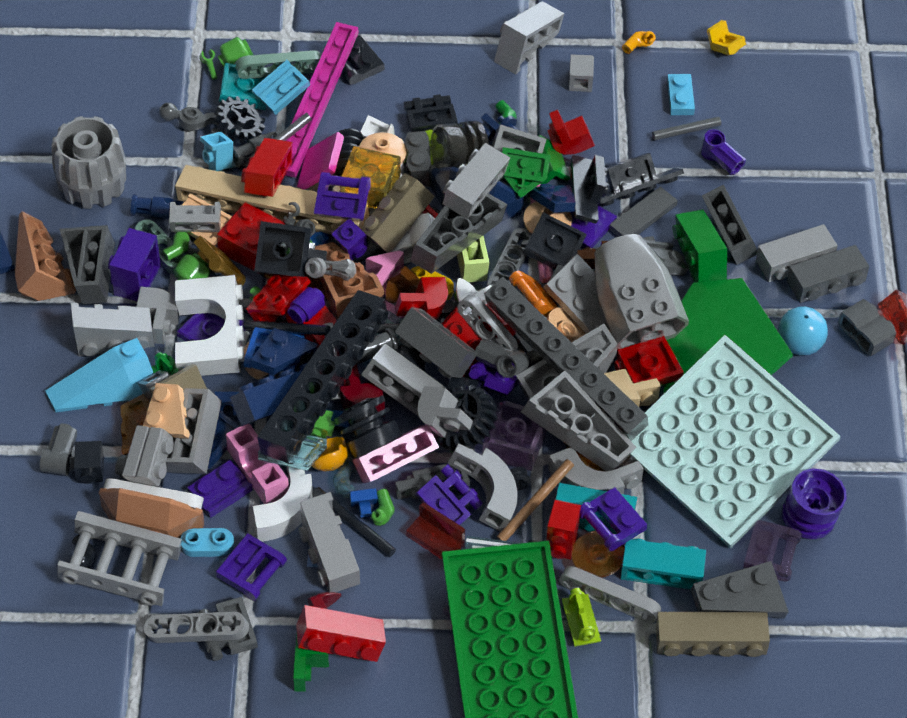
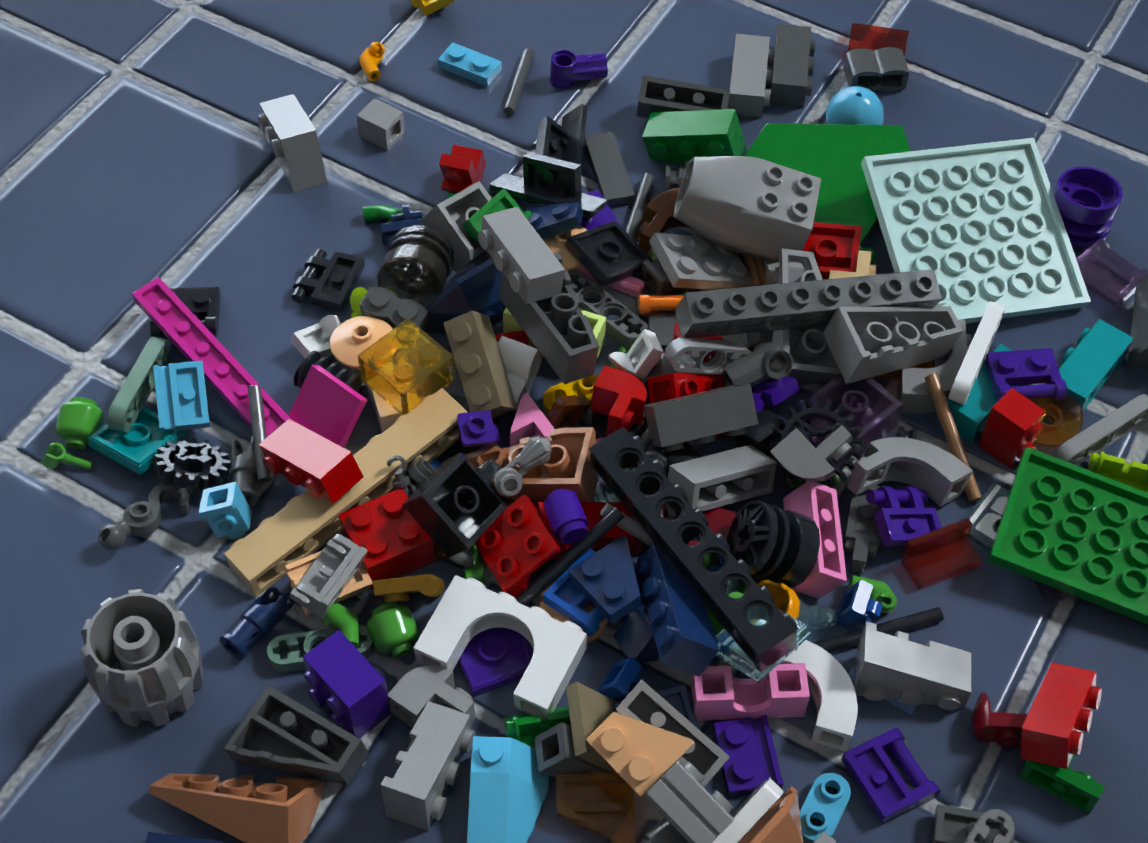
camera: 60 degrees left, 0 degrees up
(342, 204) = (434, 410): dark purple plate -> none
(603, 480) = (976, 353): none -> white beam

